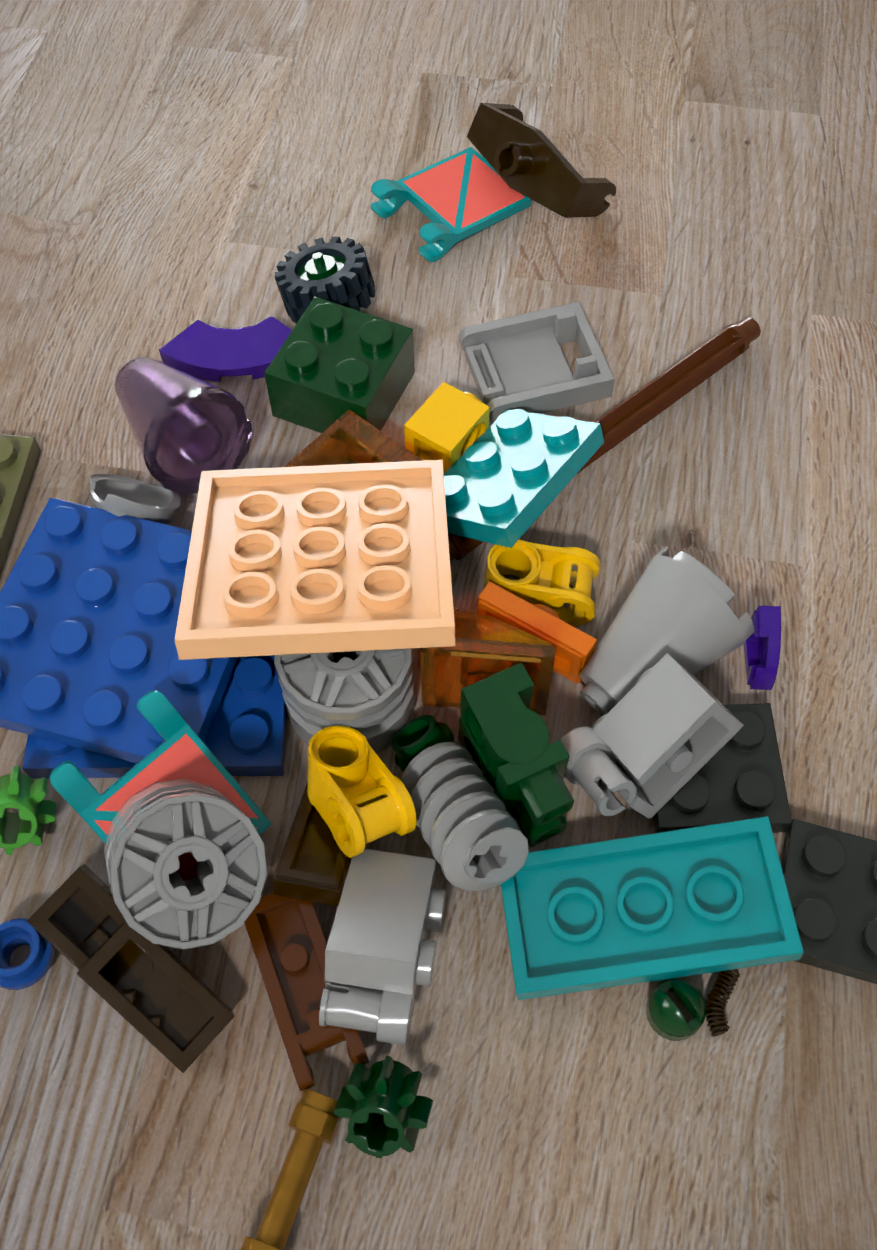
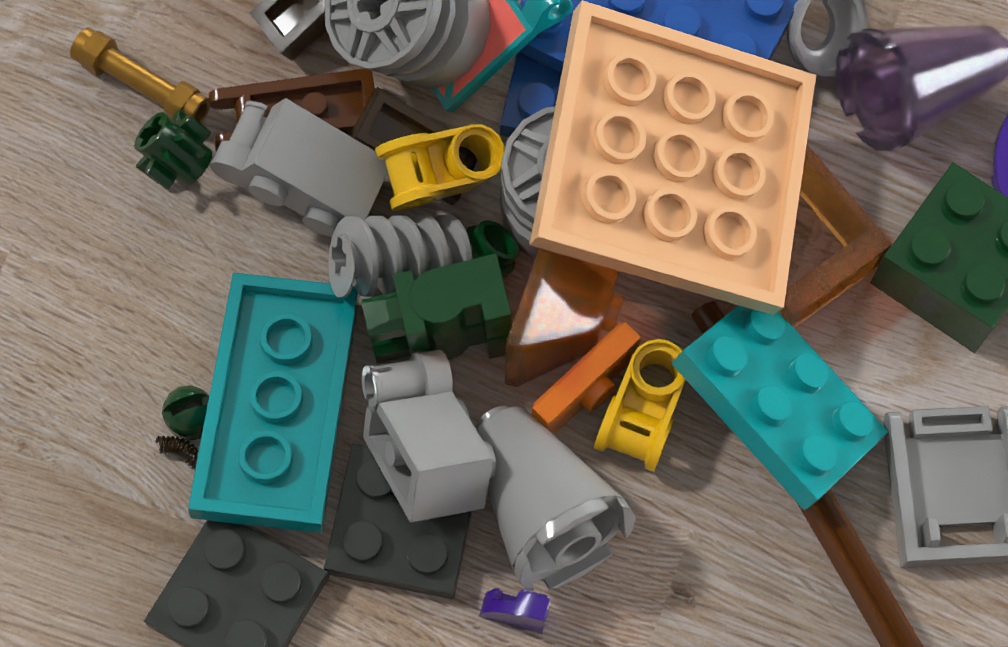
camera: 100 degrees right, 10 degrees up
(446, 425) = (865, 352): yellow brick -> none

